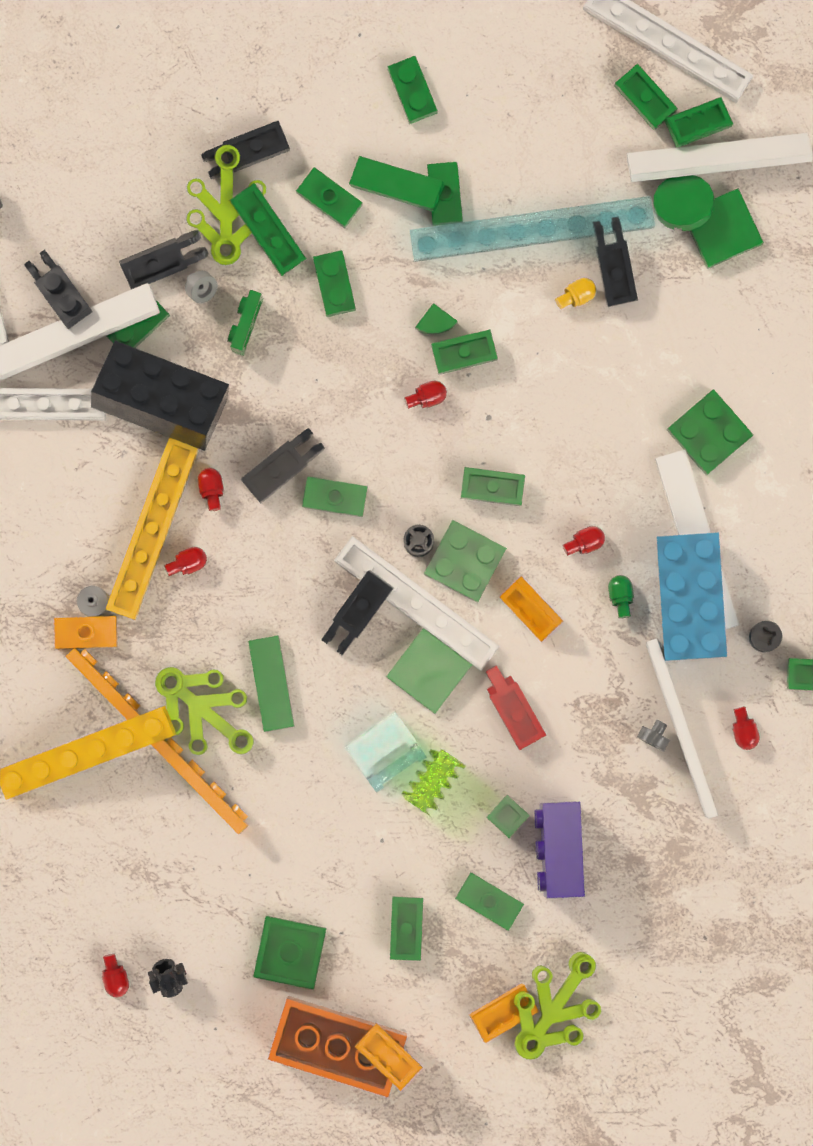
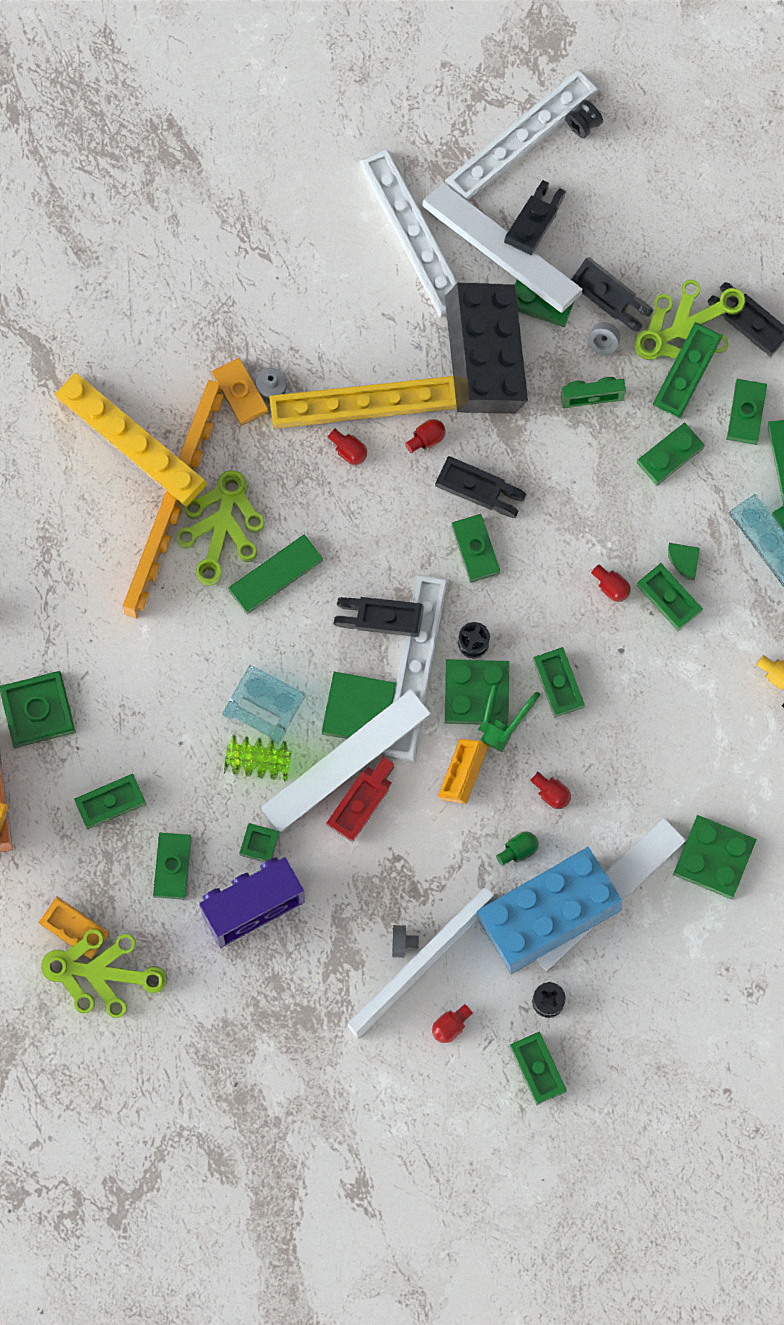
camera: 60 degrees right, 10 degrees down
(472, 706) = (345, 761): none -> white tile
(514, 562) = (498, 733): none -> green plant

